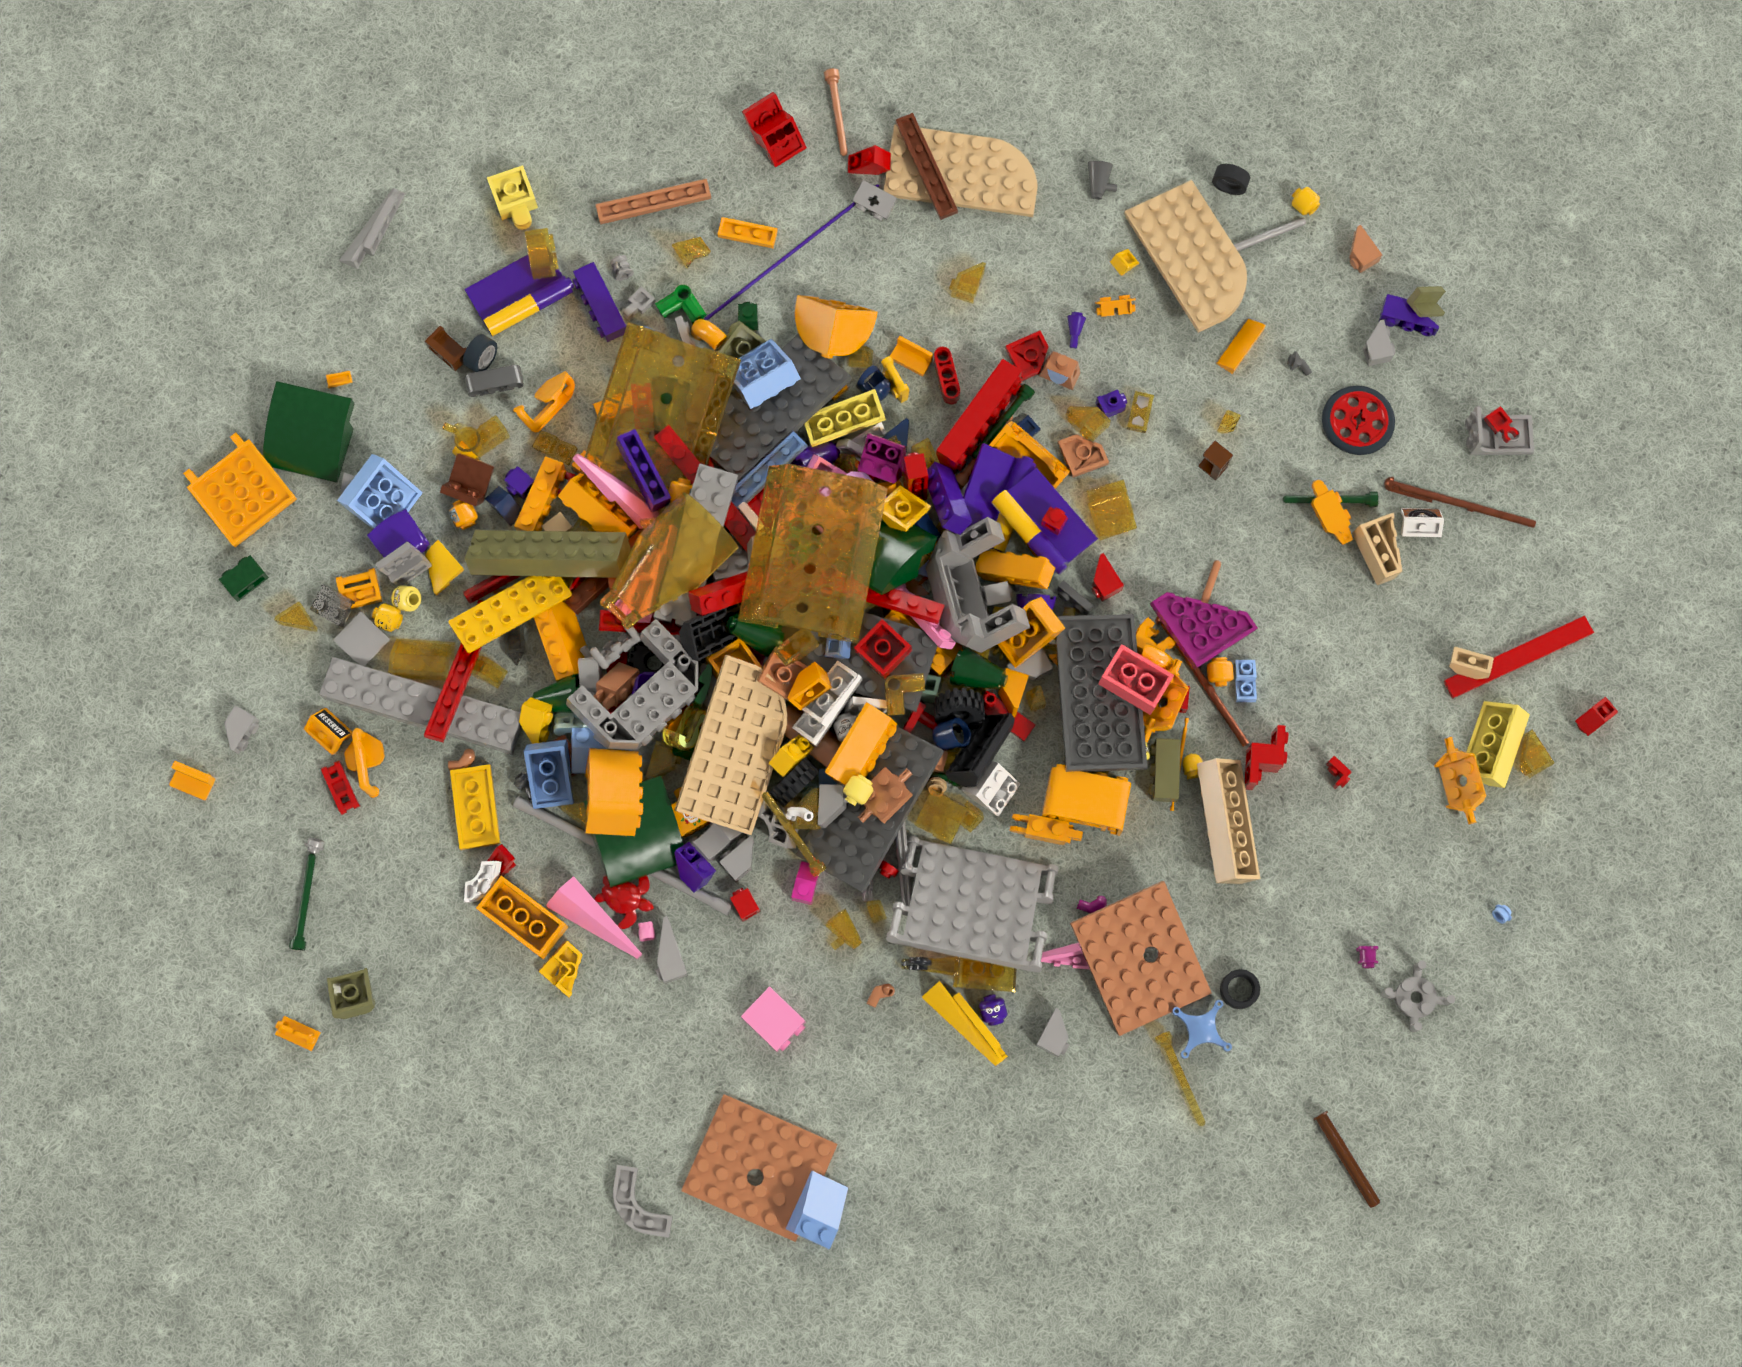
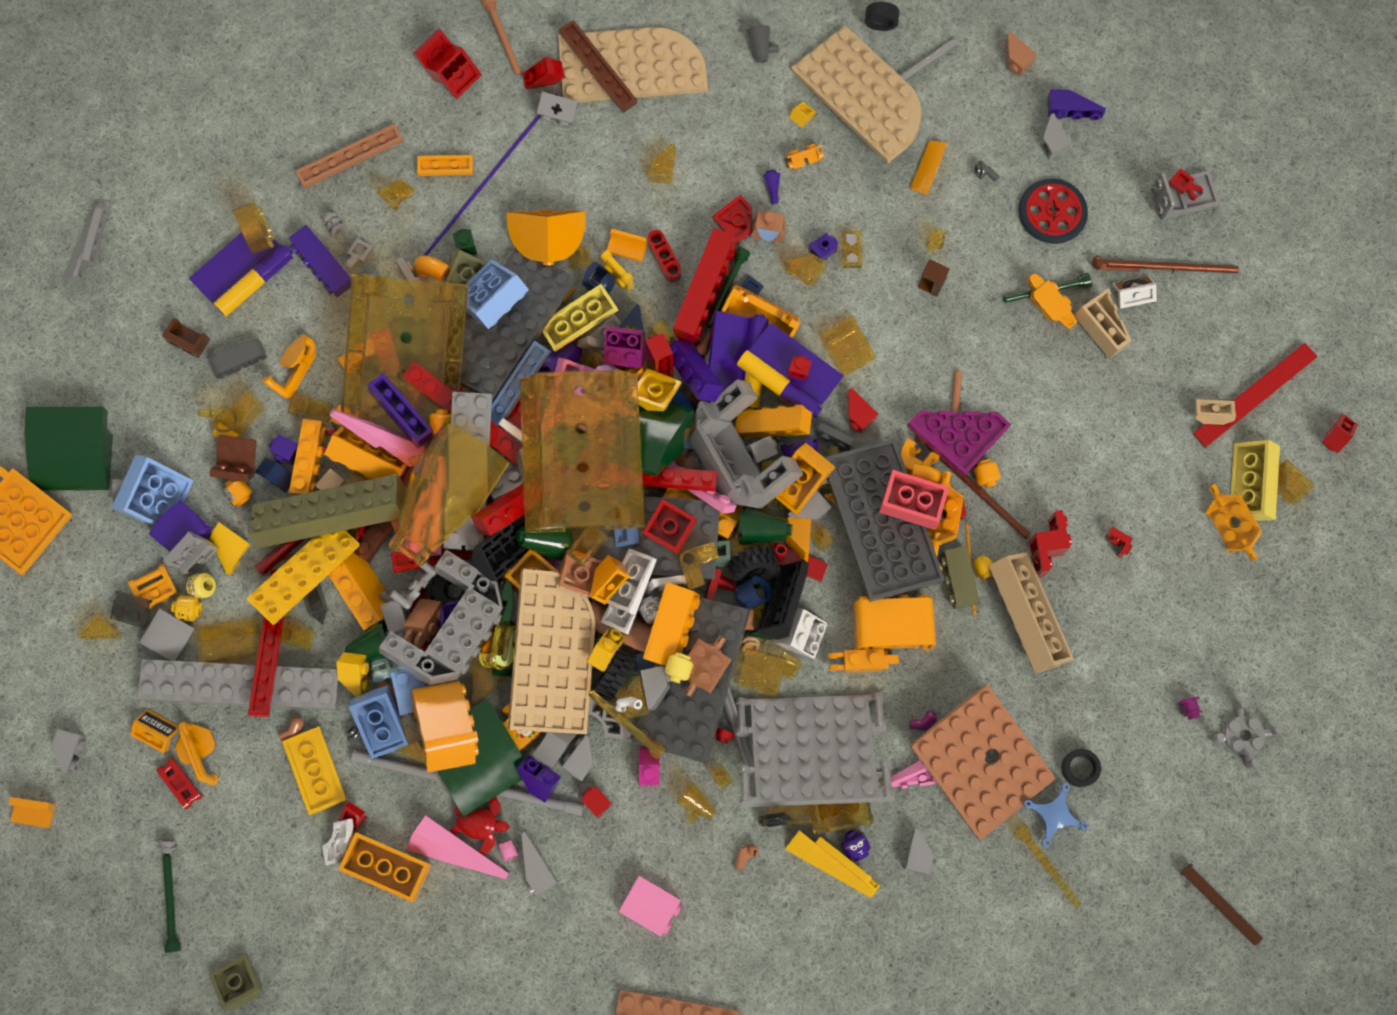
camera: 15 degrees left, 0 degrees up
(243, 578) = (37, 603): dark green brick -> none
(338, 379) = (87, 391): light orange piece -> none
(480, 353) = (218, 335): black wheel -> none
(513, 196) = (215, 180): light yellow brick -> none
(567, 961) = (439, 898): yellow slope -> none
(673, 303) = (390, 246): green piece -> none
(1082, 455) = (808, 301): nougat plate -> none
(1245, 681) = (1011, 476): light blue slope -> none
(1305, 201) = (954, 21): yellow head -> none
(1425, 301) = (1086, 87): olive panel -> none
(1502, 913) = (1302, 637): light blue plate -> none

